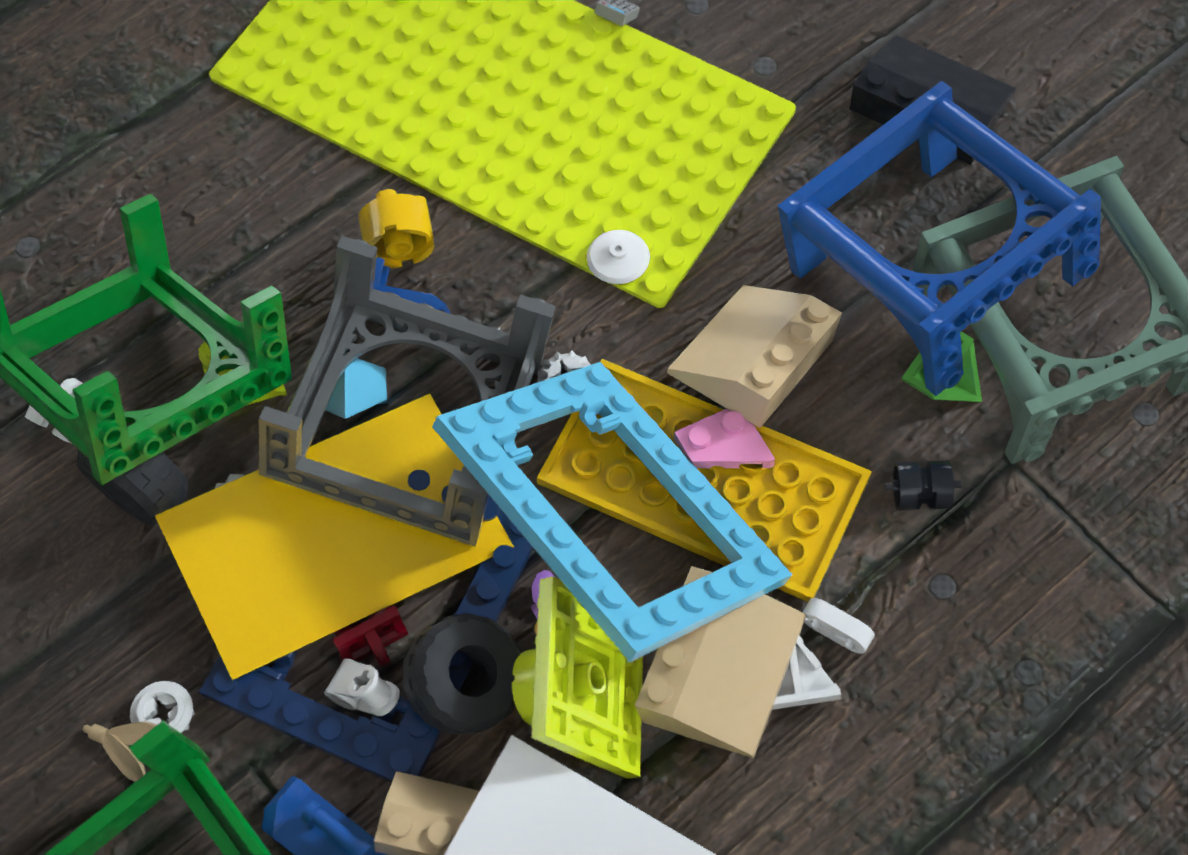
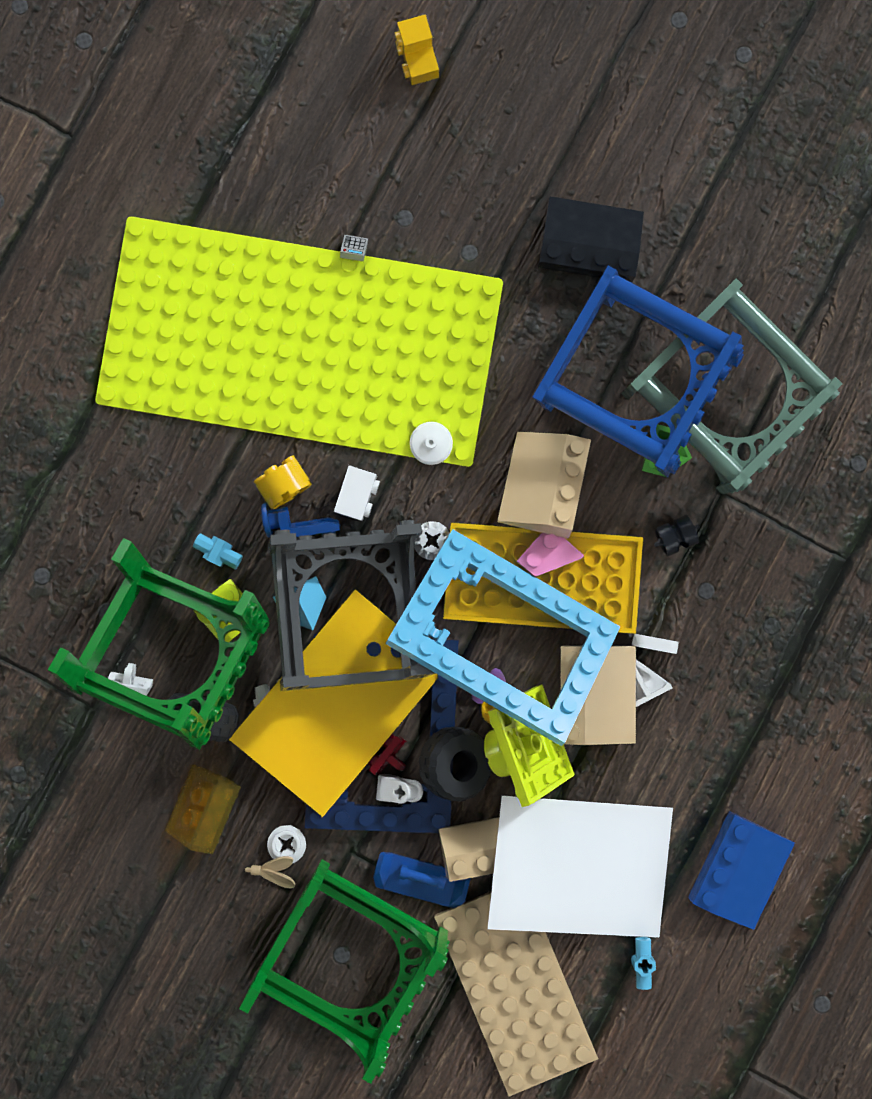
camera: 25 degrees left, 25 degrees up
(70, 614) = (202, 809): none -> clear yellow slope
(260, 279) = (217, 551): none -> medium azure axle
(488, 281) = (356, 493): none -> white brick

